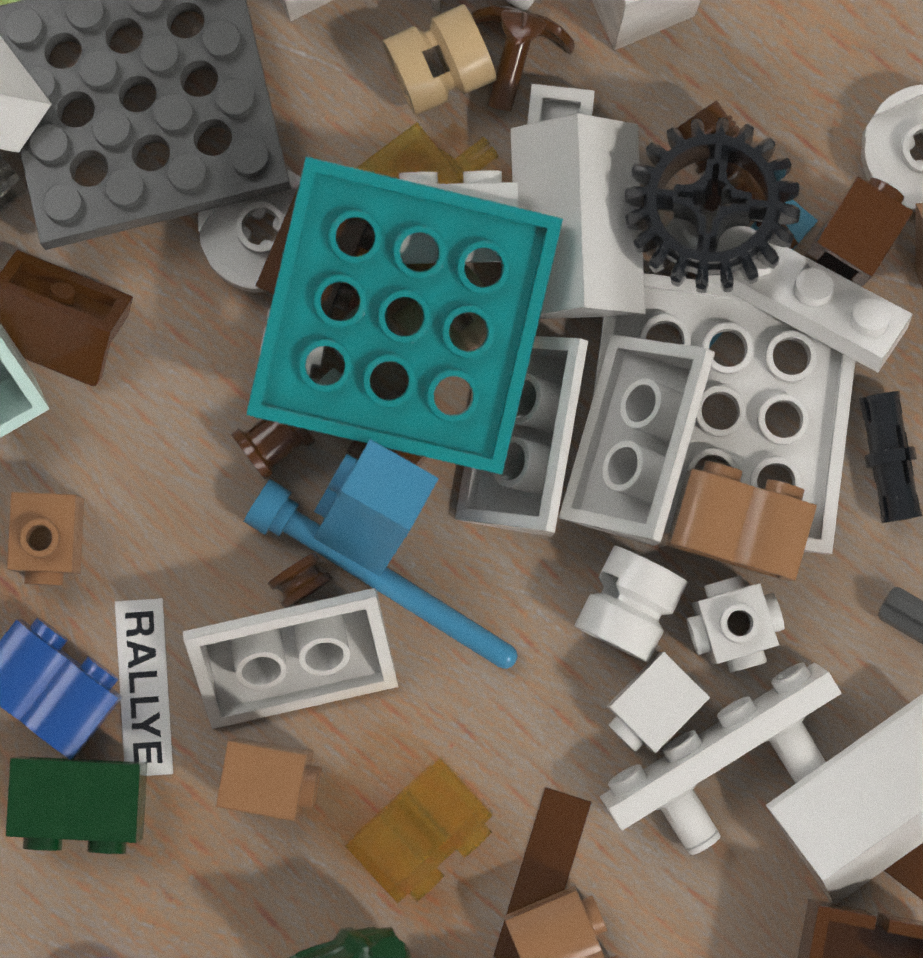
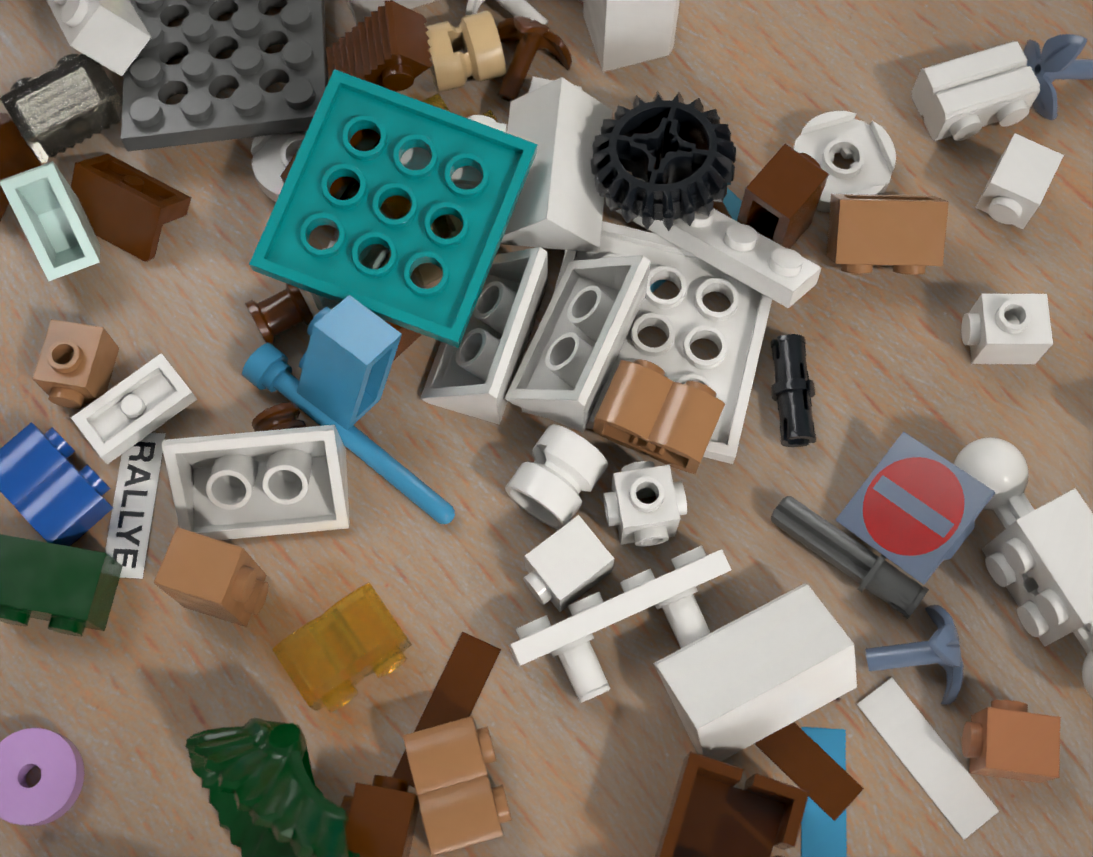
camera: 10 degrees right, 15 degrees down
(124, 579) = (133, 408): none -> white plate
(340, 96) = (384, 48): none -> reddish brown brick

